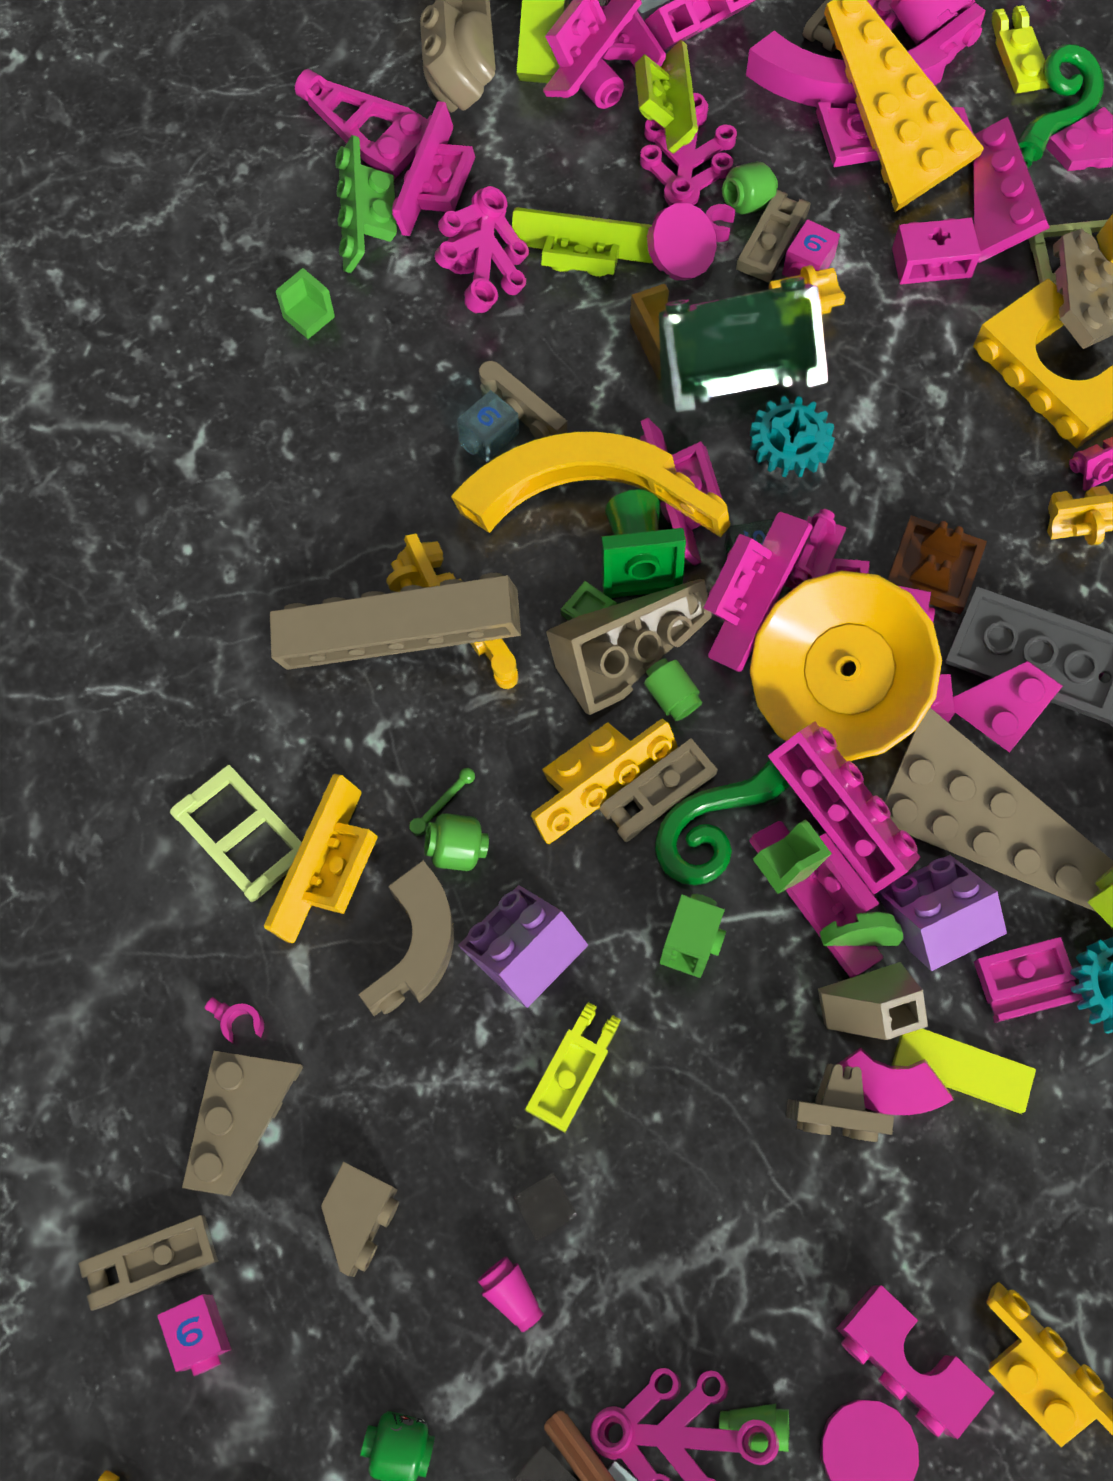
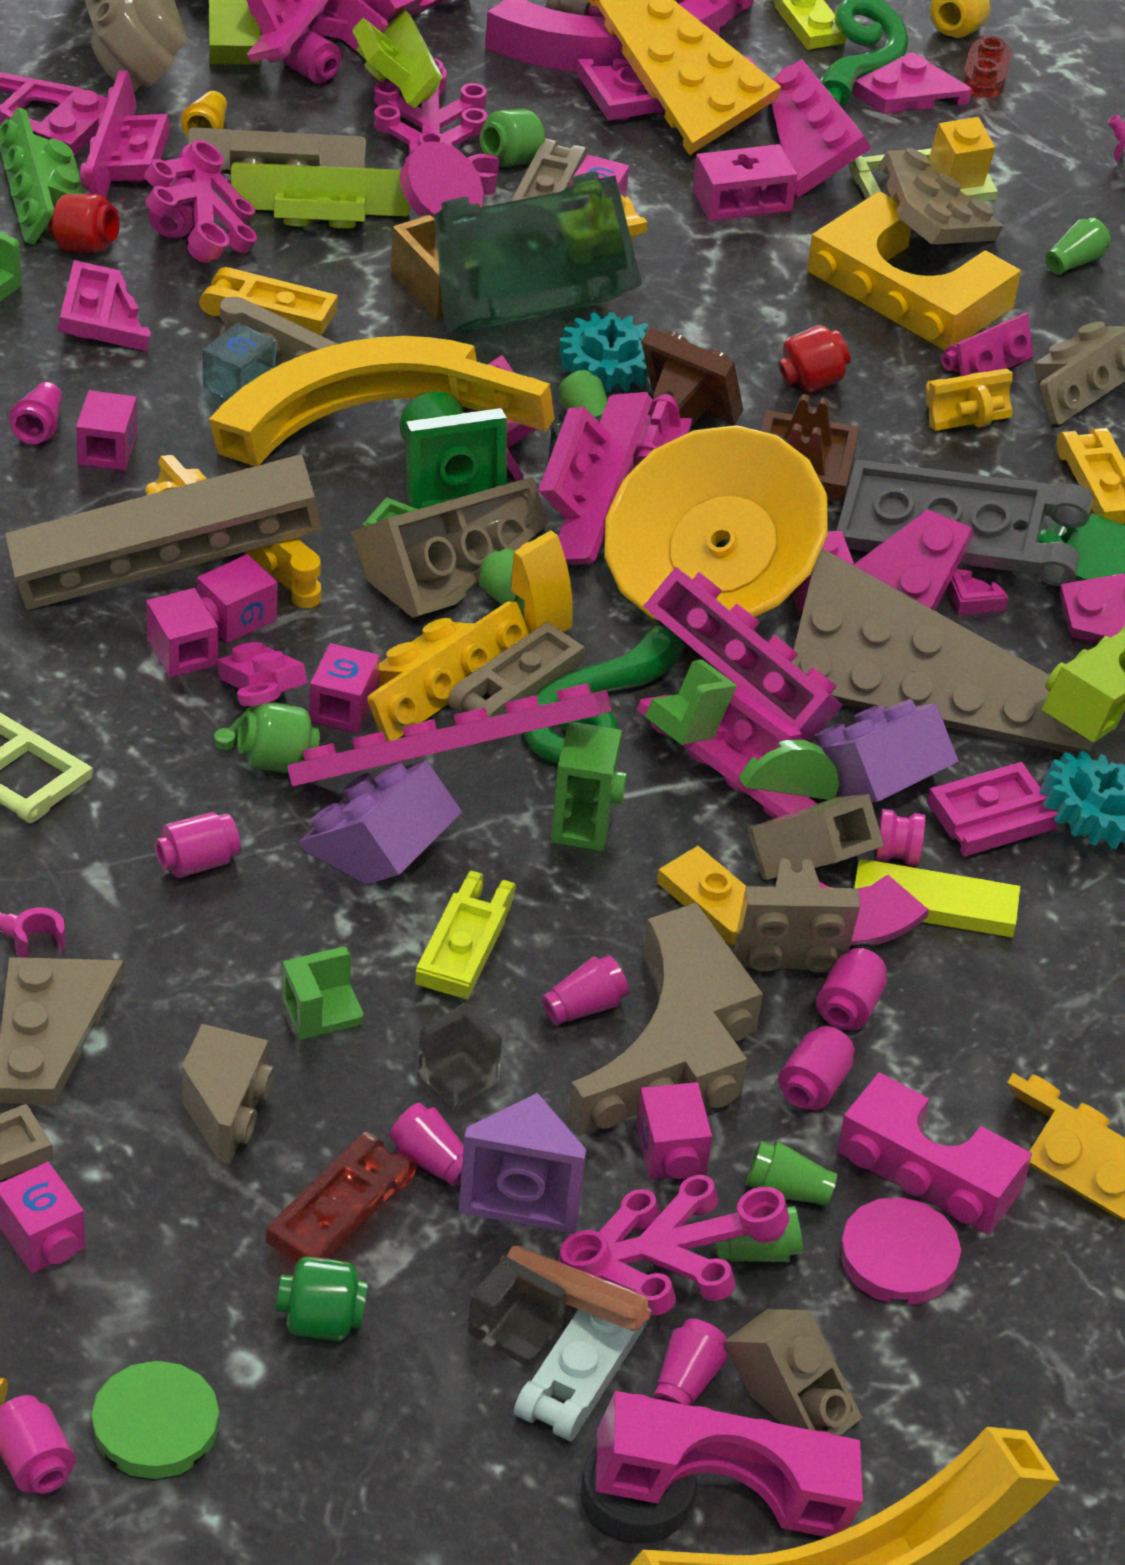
camera: 15 degrees left, 25 degrees down
(321, 467) = (37, 414): none -> dark pink cone
(325, 863) = (116, 772): yellow bracket -> none
(372, 490) = (106, 430): none -> dark pink brick
(374, 949) = (197, 844): none -> dark pink brick
(389, 261) = (84, 223): none -> red head
(389, 352) = (101, 308): none -> dark pink wing
(397, 717) = (182, 632): none -> dark pink brick
(428, 1342) = (340, 1199): none -> clear red plate
(431, 944) = (261, 851): dark tan arch -> none
(445, 686) = (239, 597): none -> dark pink brick
(449, 1121) = (320, 993): none -> bright green panel
(453, 778) = (260, 673): none -> dark pink hinge
(504, 147) = (205, 112): none -> yellow cone
(517, 791) = (342, 688): none -> dark pink brick
(525, 356) = (296, 303): none -> yellow plate
(558, 191) = (283, 148): none -> dark tan bracket
(576, 1351) = (523, 1168): none -> medium lavender slope
(588, 891) = (470, 729): none -> dark pink plate
(659, 1143) = (586, 991): none -> dark pink cone
(690, 709) = (543, 582): none -> yellow slope
(705, 1310) = (673, 1131): none -> dark pink brick
(727, 1222) = (700, 1014): none -> dark tan arch
(764, 491) = (583, 390): none -> bright green cone
(781, 1044) = (704, 881): none -> yellow plate
(790, 1365) = (790, 1174): none -> bright green cone
(832, 1254) = (817, 1068): none -> dark pink brick
(849, 486) = (694, 376): none -> reddish brown plate
(876, 1171) = (852, 989): none -> dark pink brick
(945, 1006) = (901, 837): none -> dark pink wheel
(961, 459) = (814, 359): none -> red head
(1054, 730) = (974, 595): none -> dark pink tile

